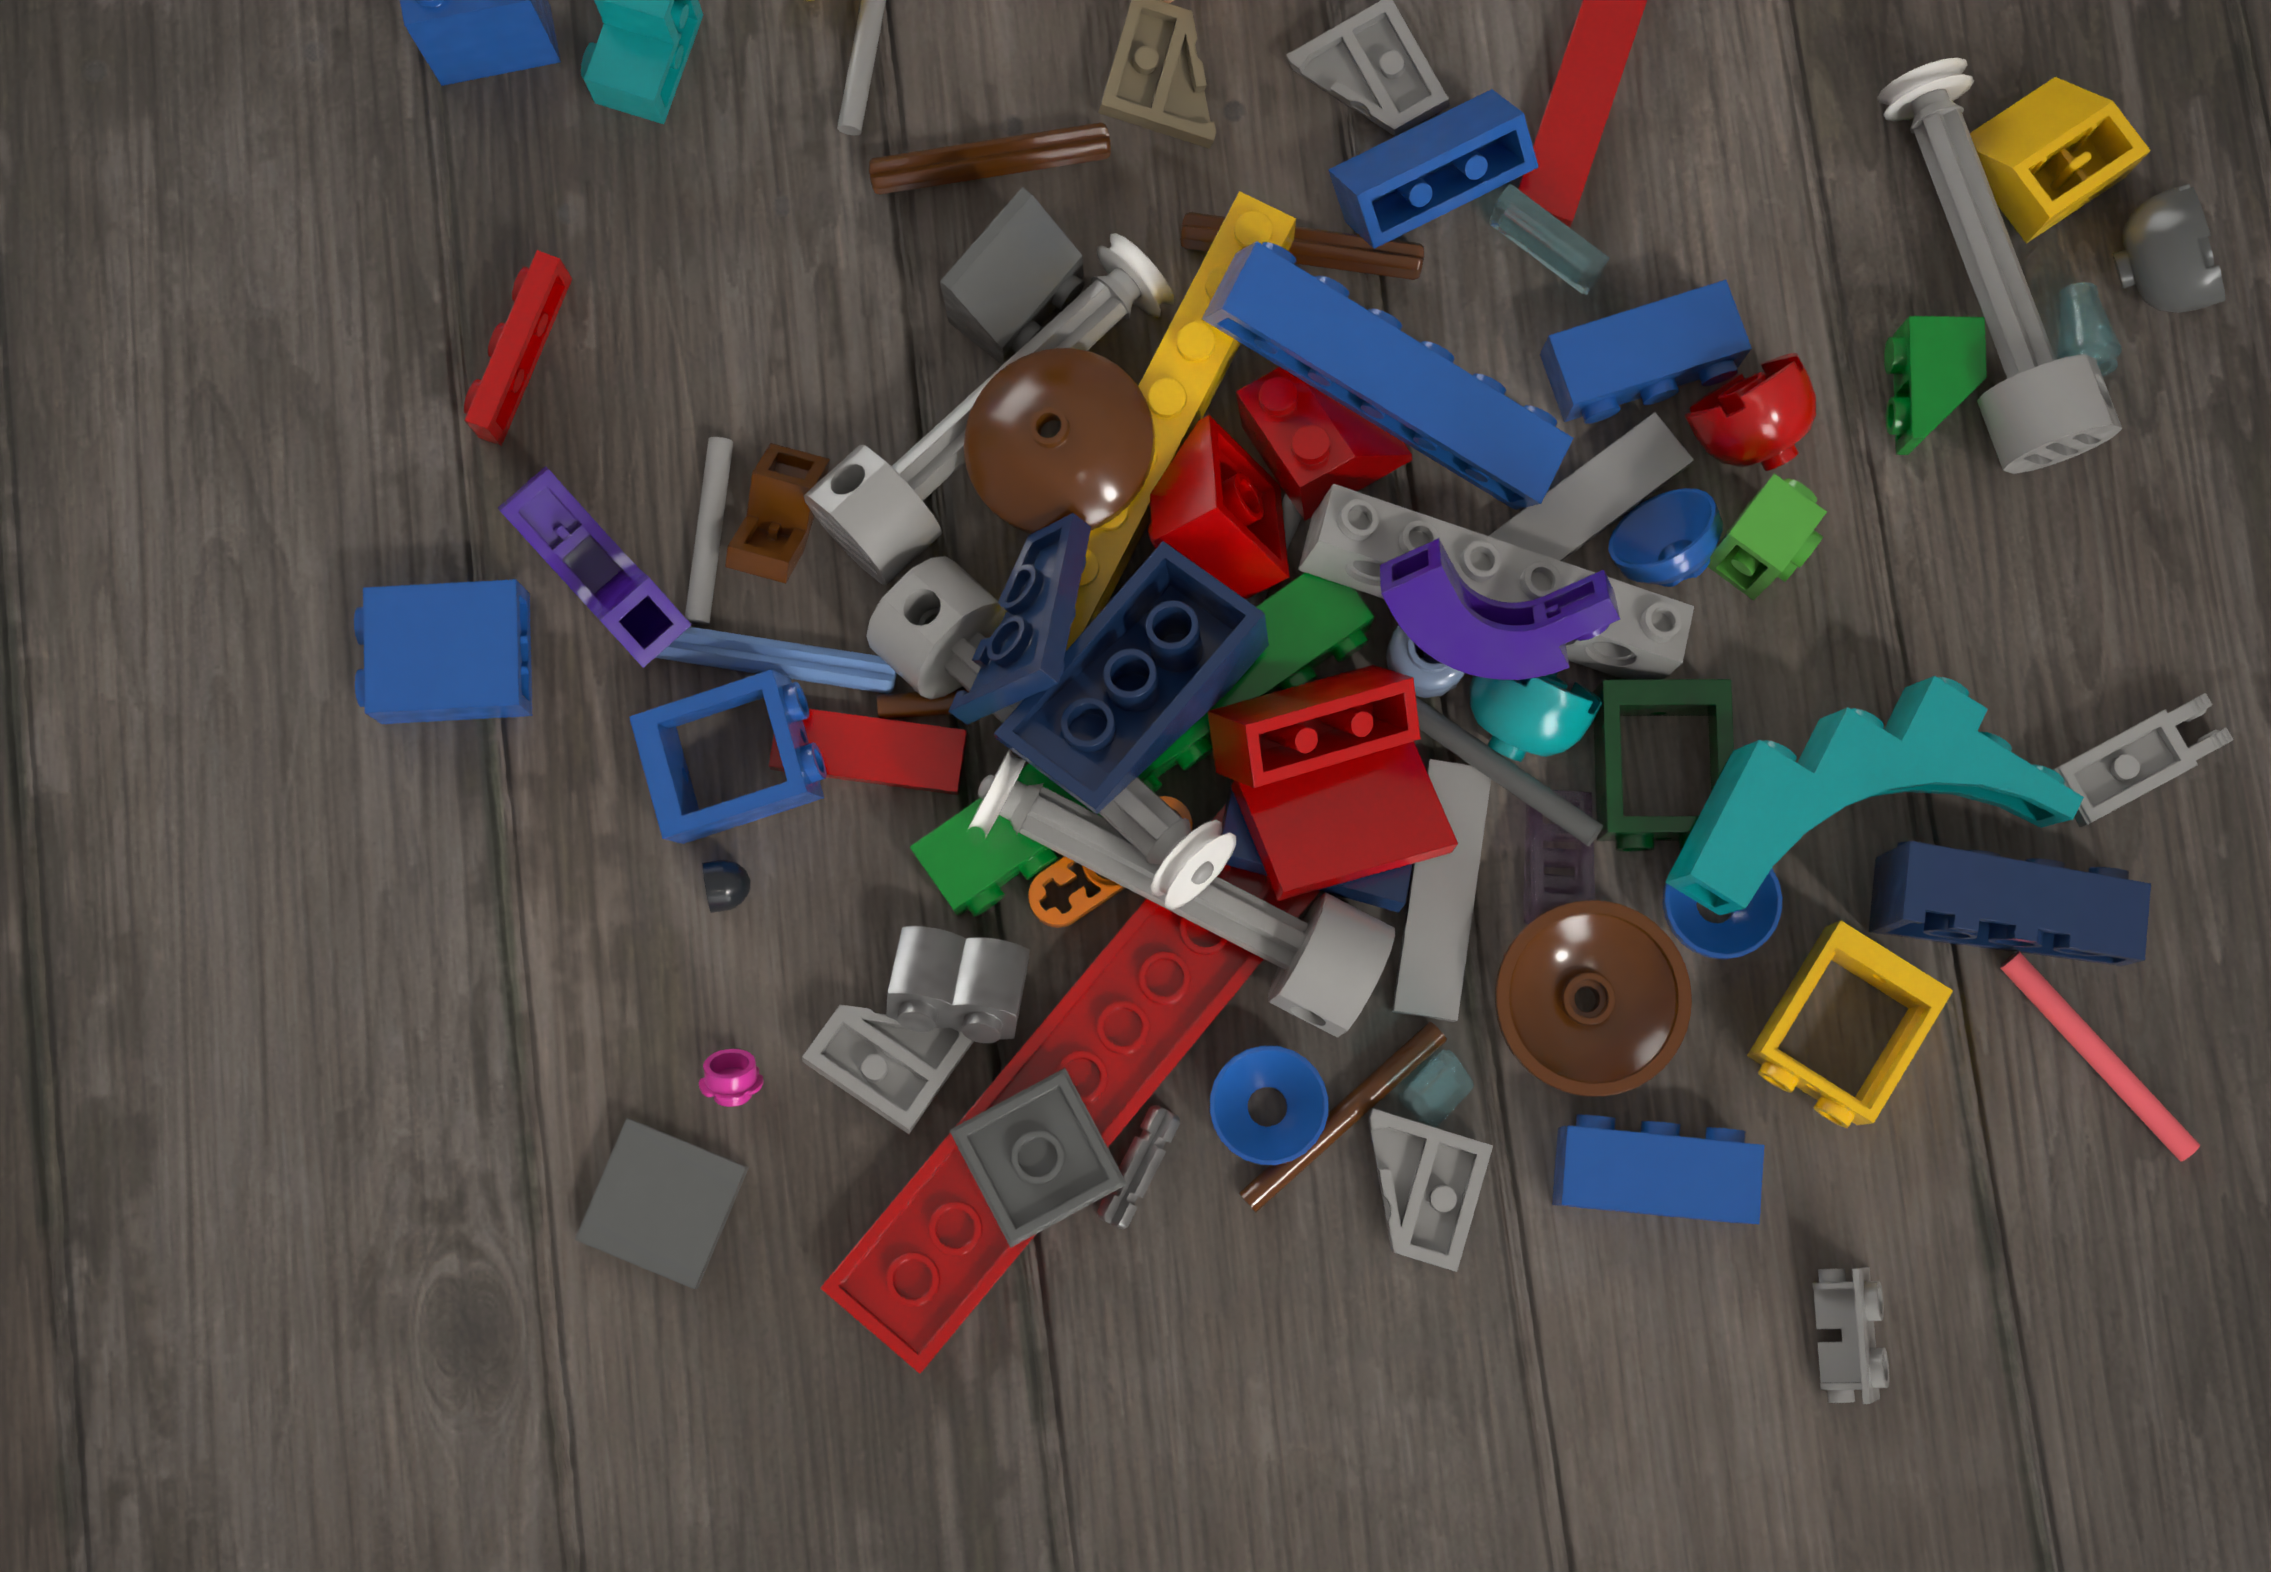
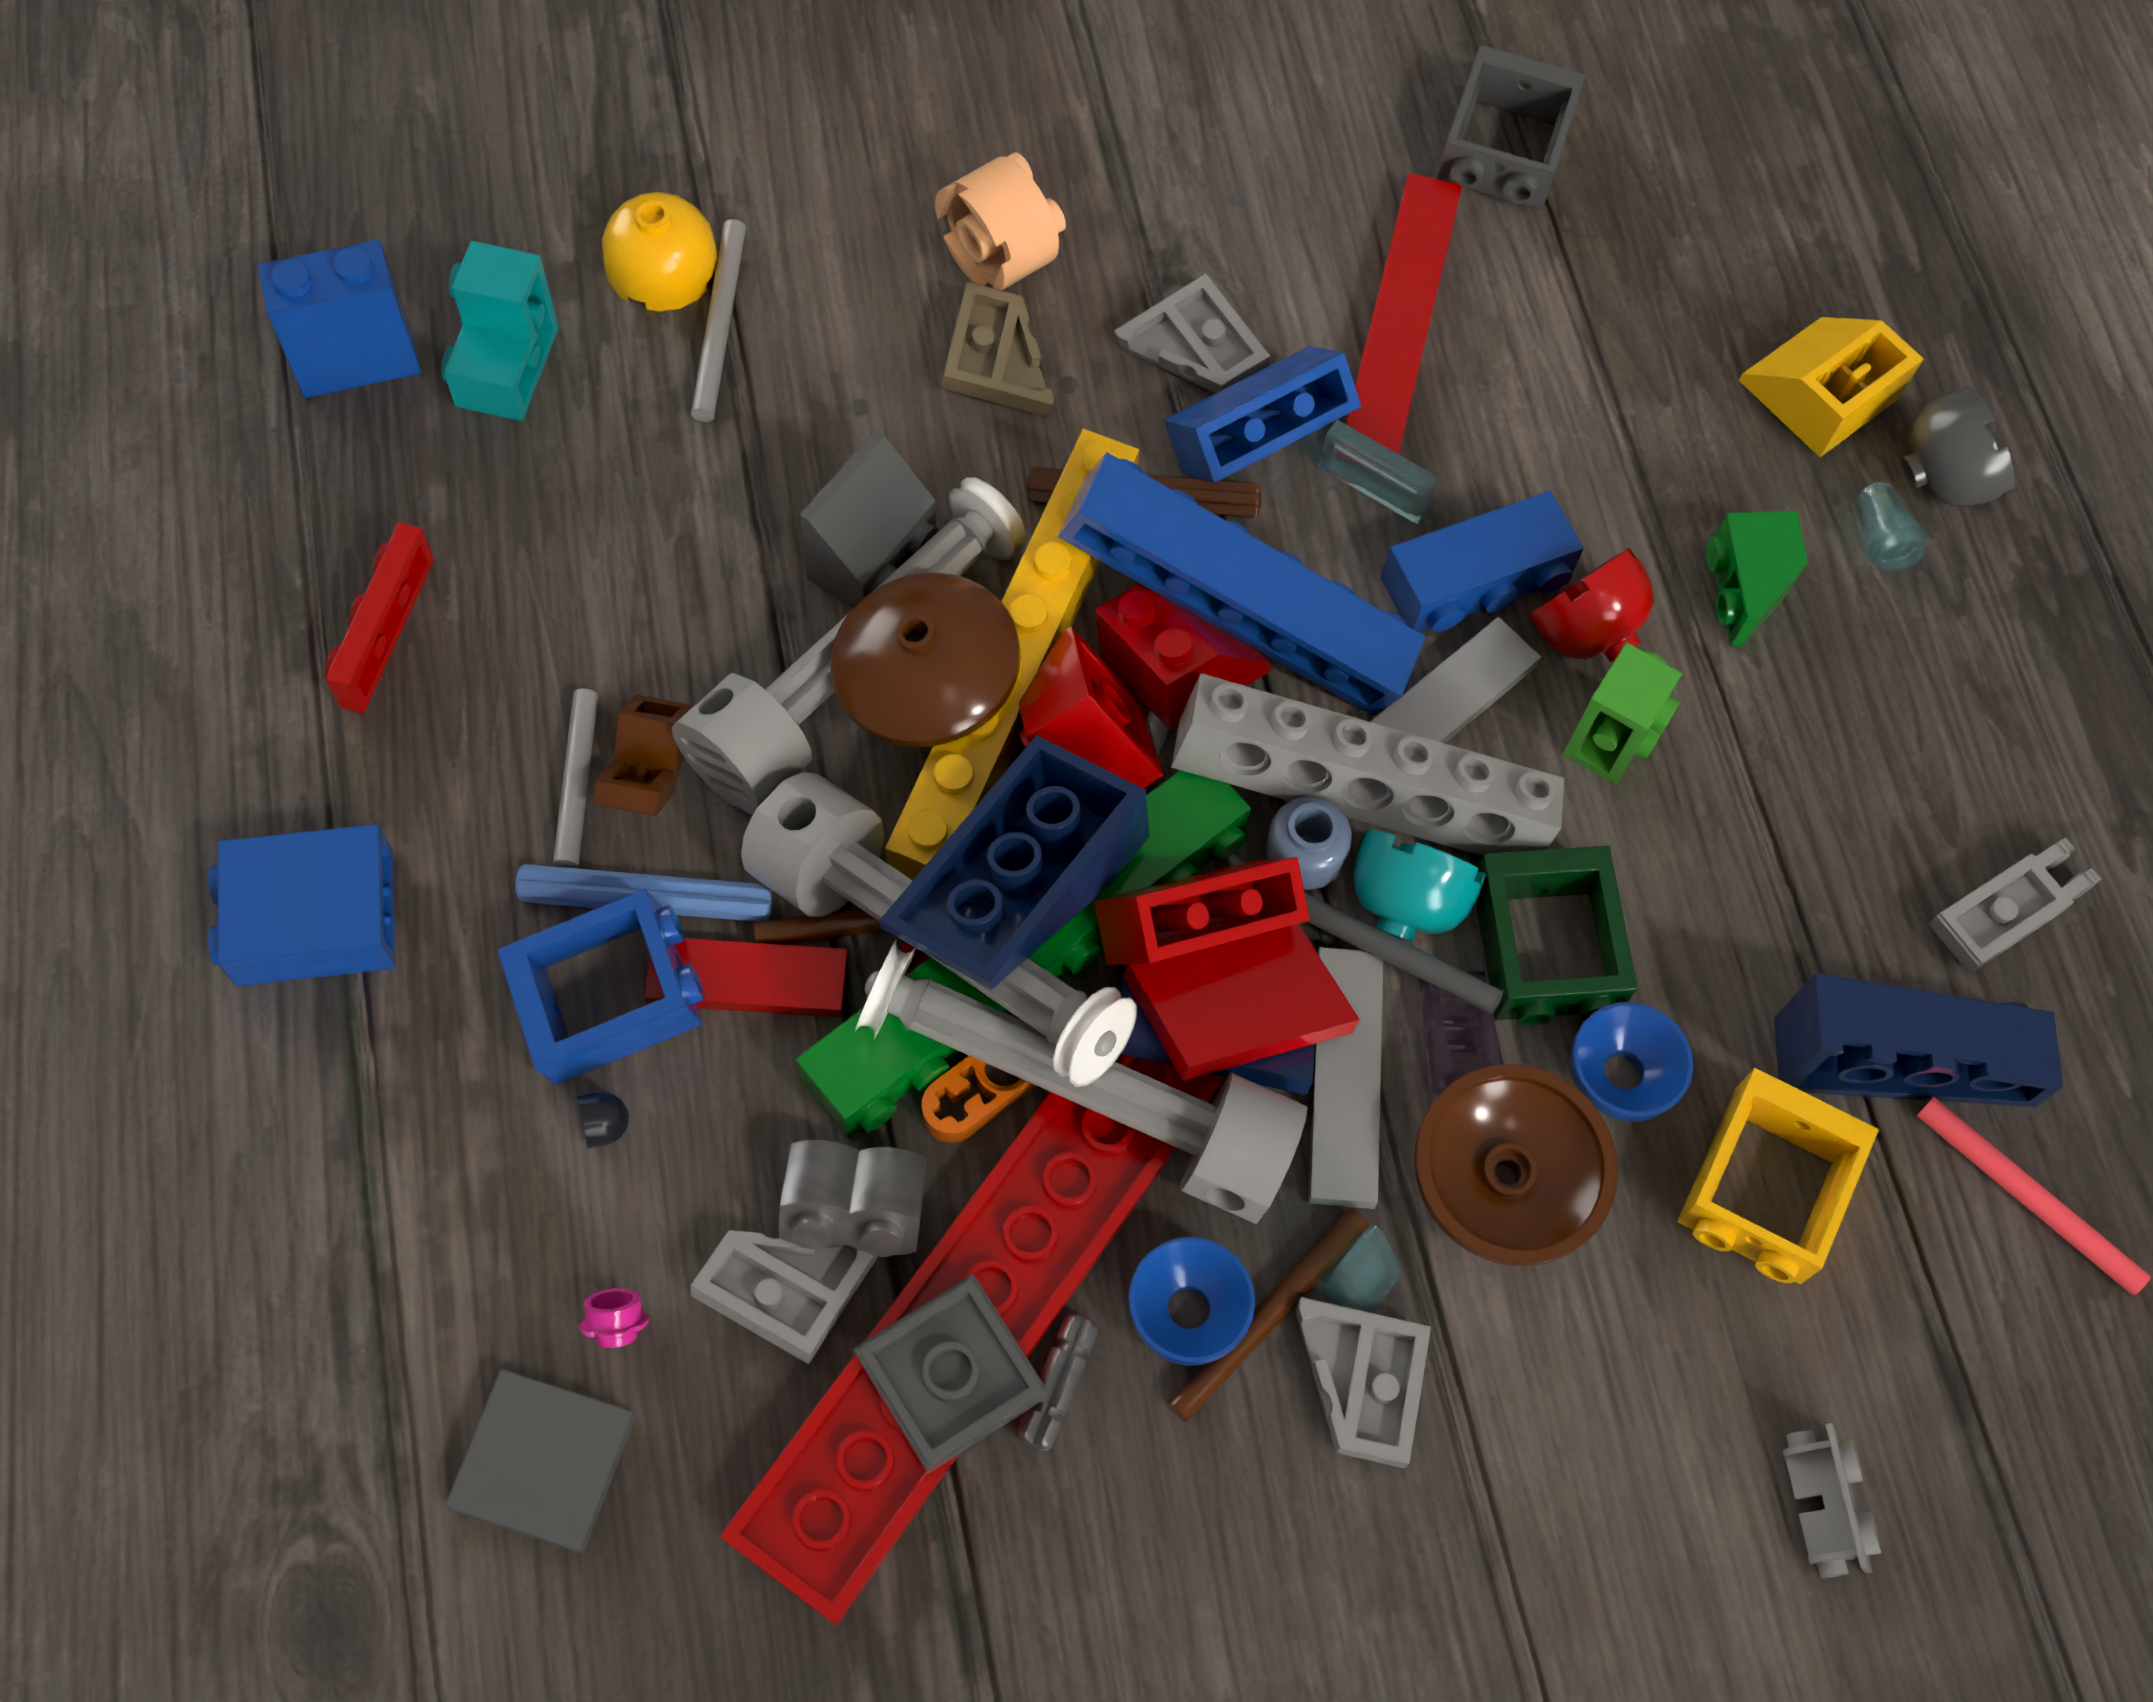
camera: 10 degrees left, 15 degrees down
(594, 567) = (479, 833): dark purple arch -> none
(989, 158) = (837, 431): reddish brown axle -> none
(1032, 640) = (914, 820): dark blue wing -> none
(1487, 634) = (1366, 804): dark purple arch -> none
(1658, 1171) = (1606, 1343): blue brick -> none
(1667, 537) = (1529, 723): blue piece -> none
(1927, 746) = (1806, 901): teal arch -> none
(2046, 404) = (1866, 584): light grey piece -> none

